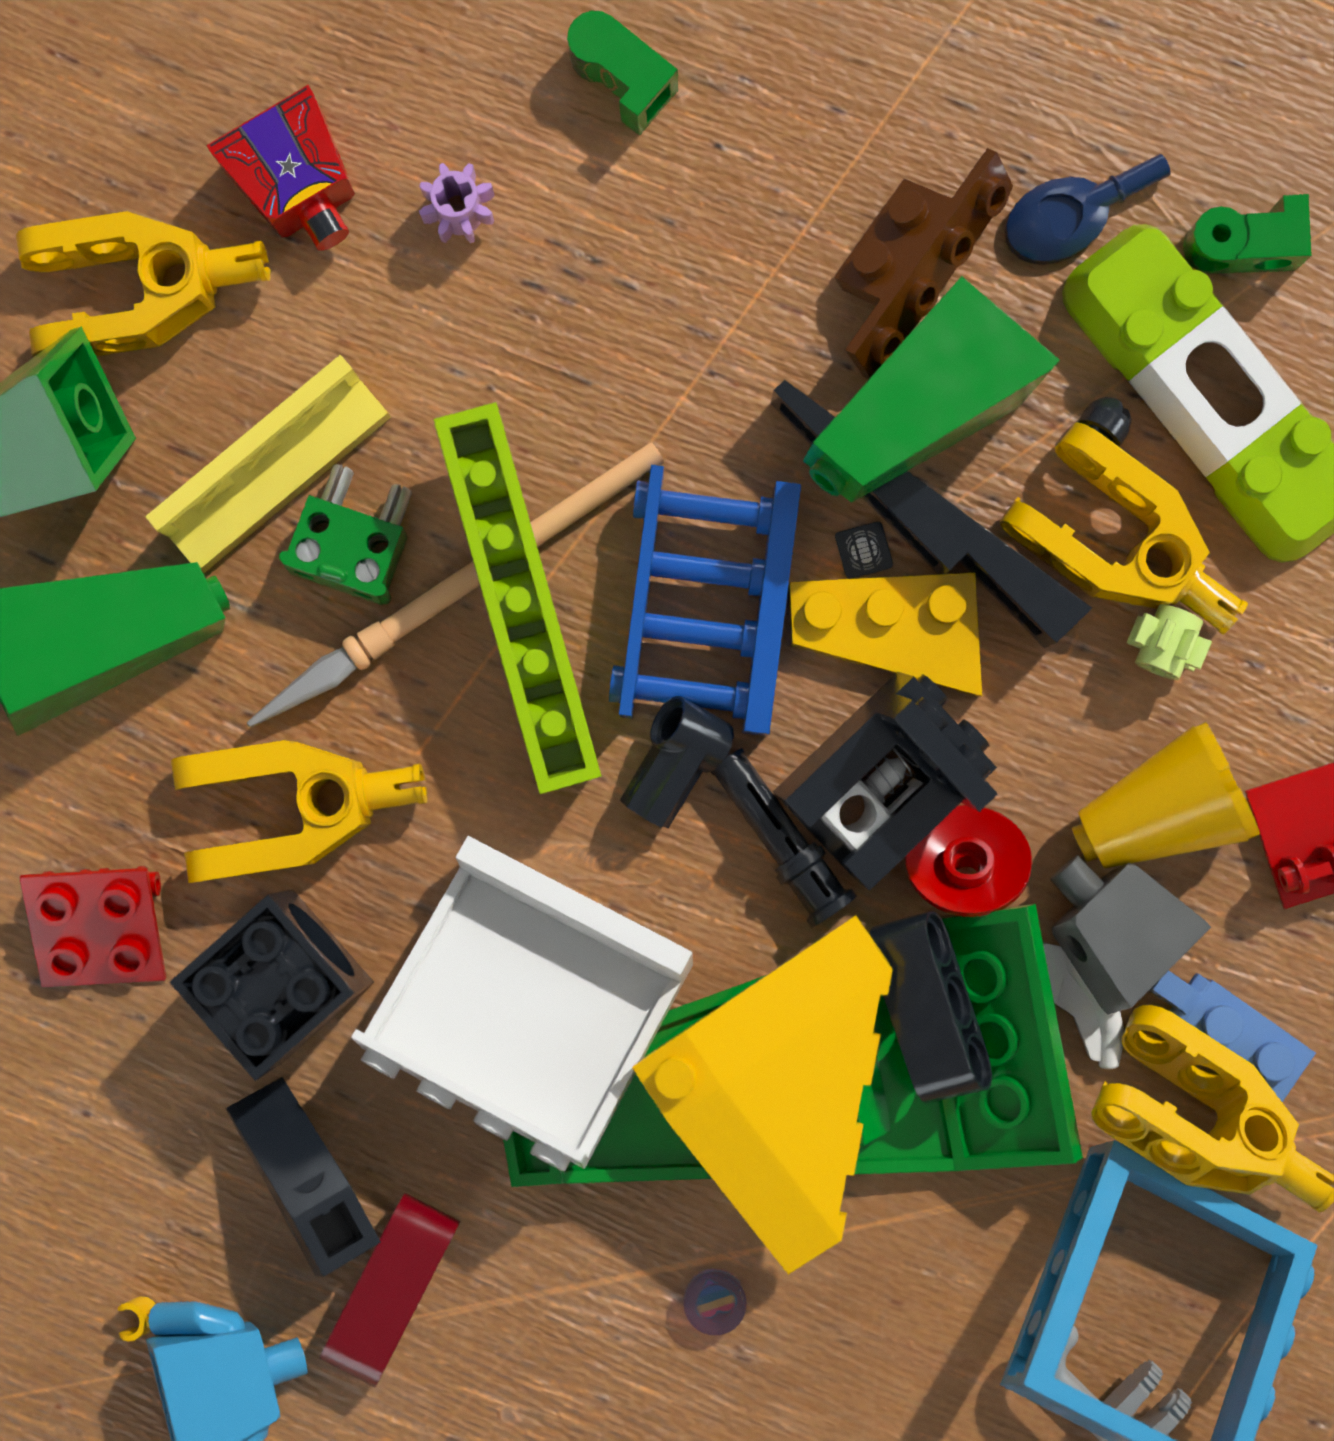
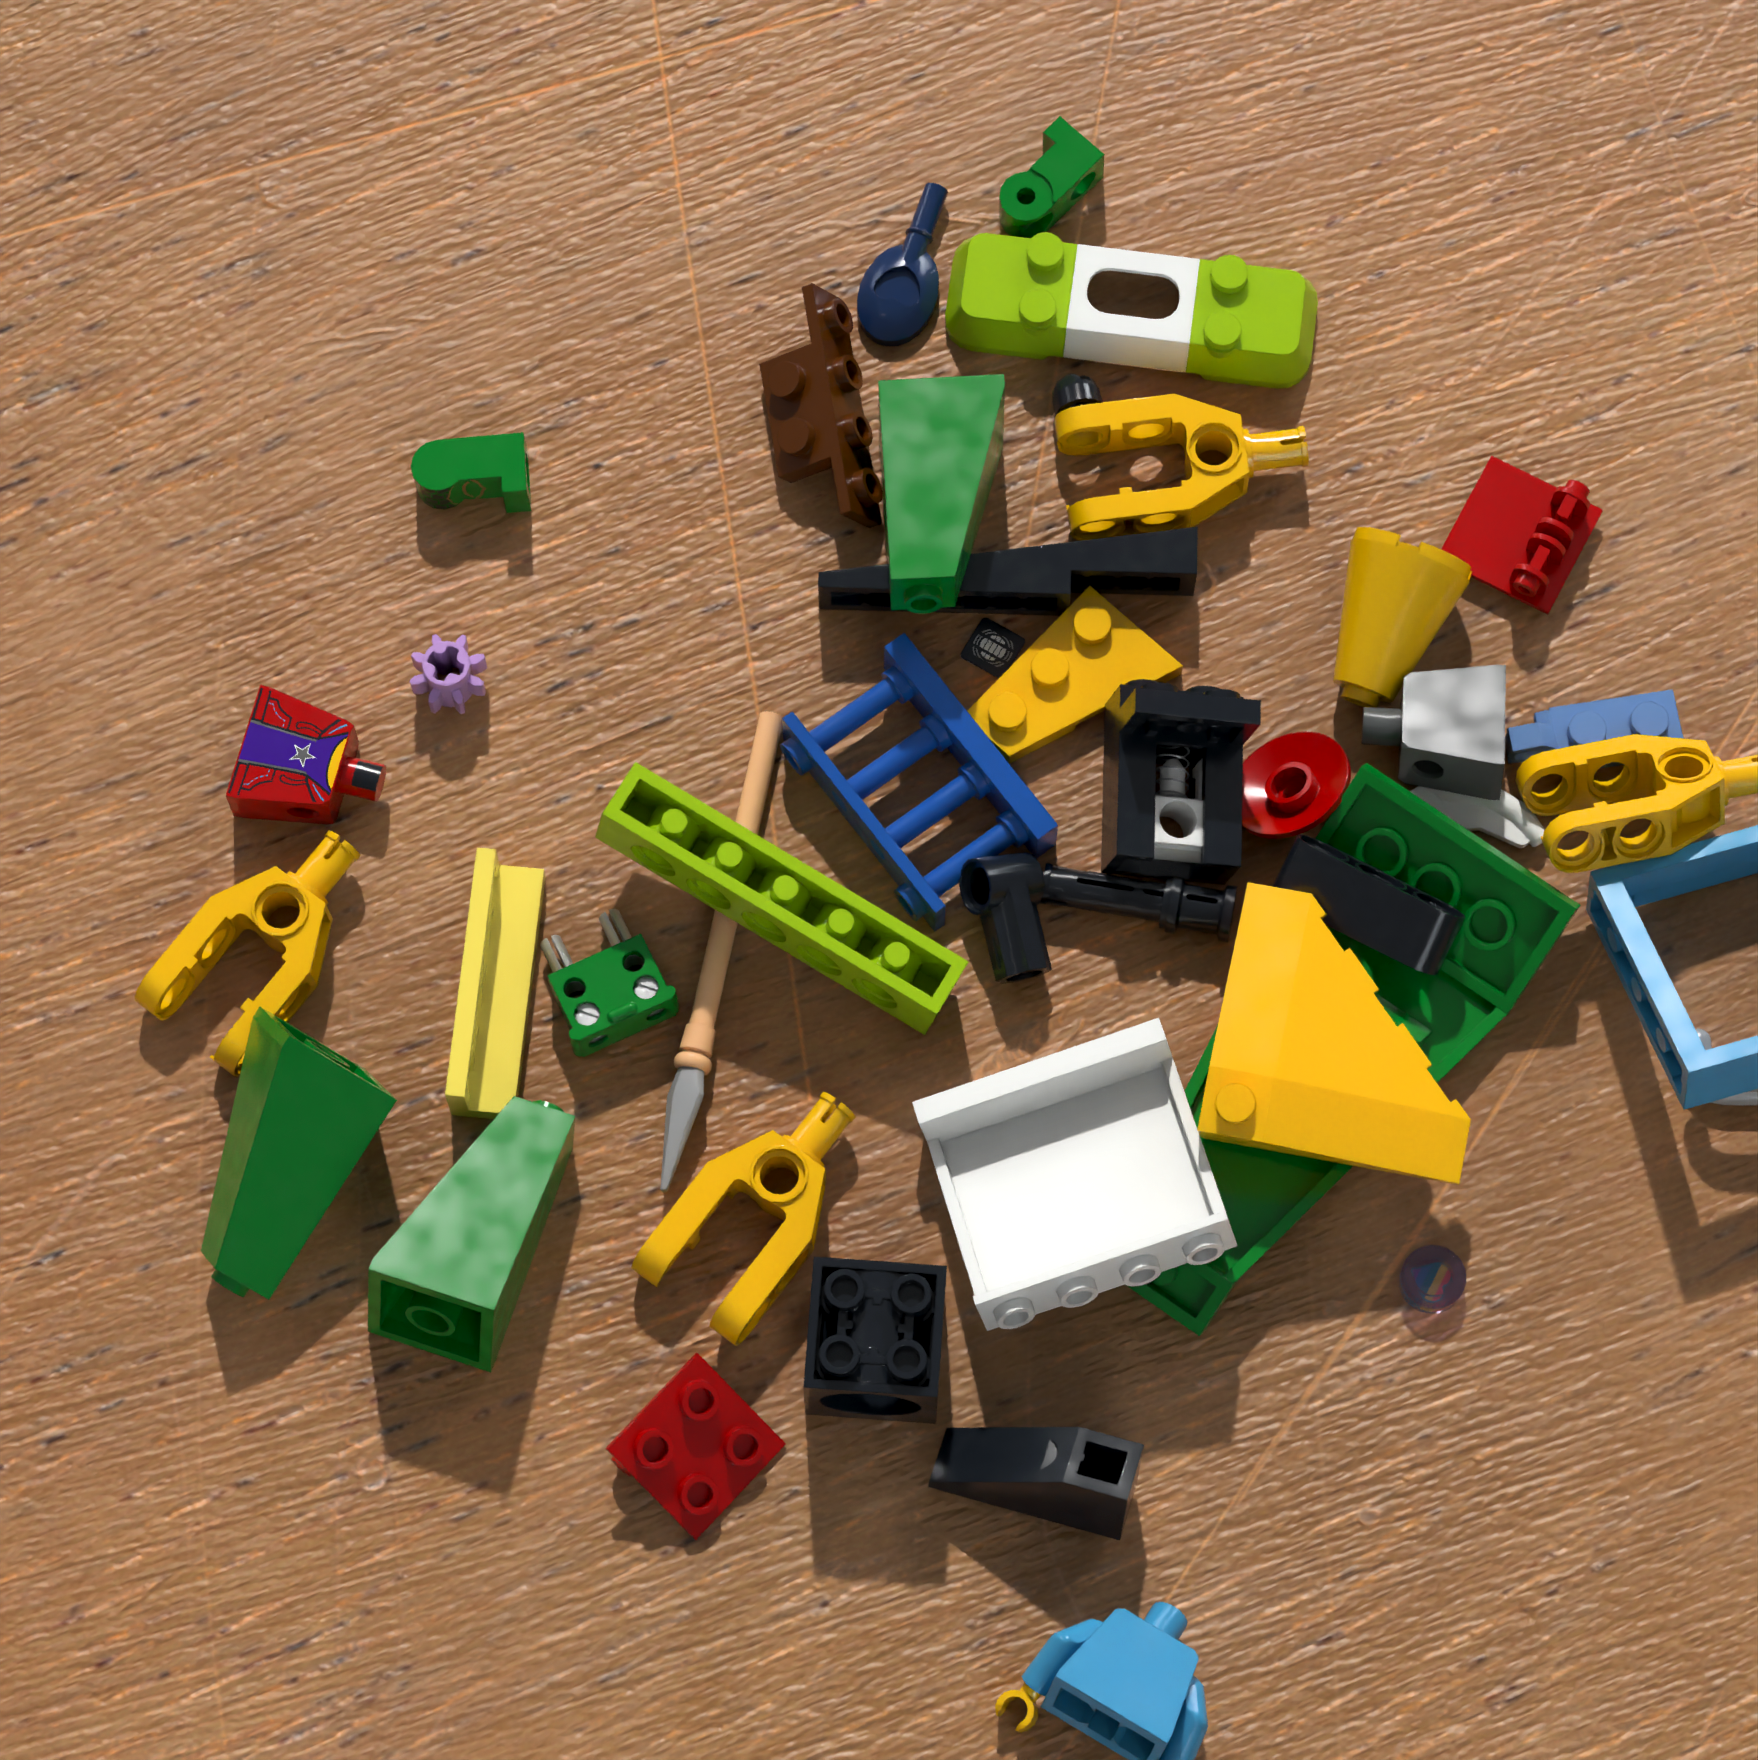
camera: 45 degrees left, 15 degrees down
(389, 1290) = (1187, 1497): dark red beam -> none
(1169, 642) = (1276, 504): yellowish green gear -> none

